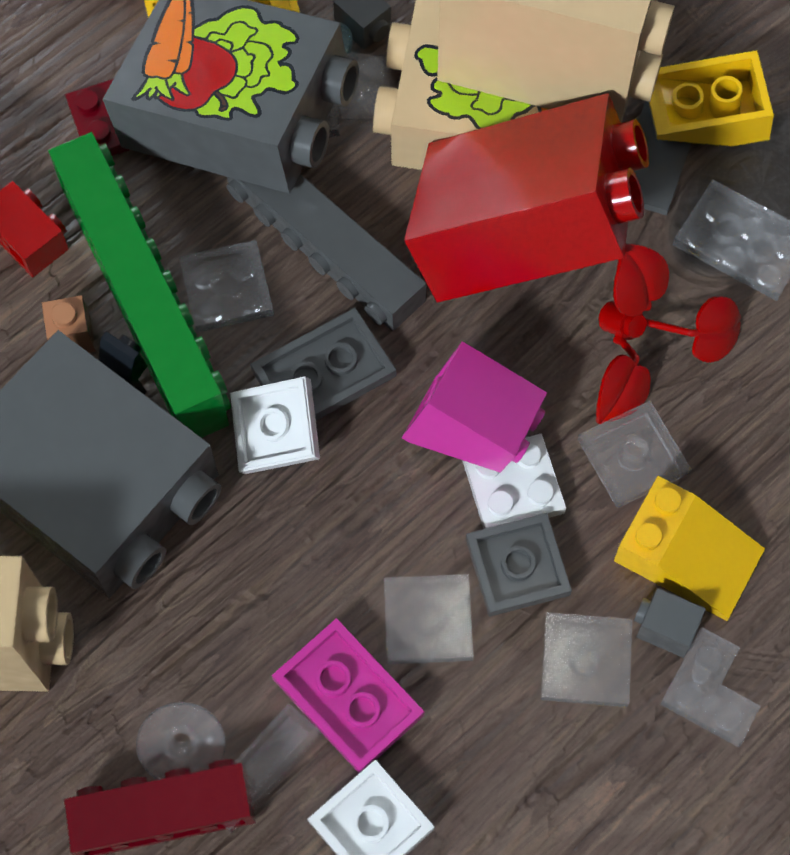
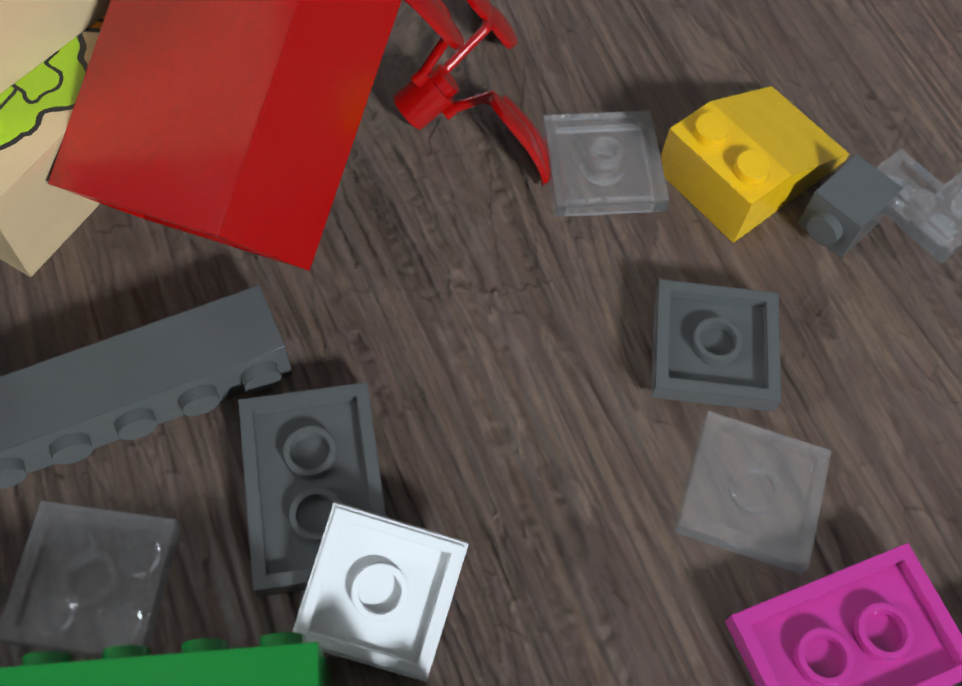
camera: 75 degrees left, 5 degrees down
(477, 411) = (485, 301): dark pink slope -> none
(520, 488) = (592, 310): white plate -> none
(586, 659) = (870, 318): clear plate -> none

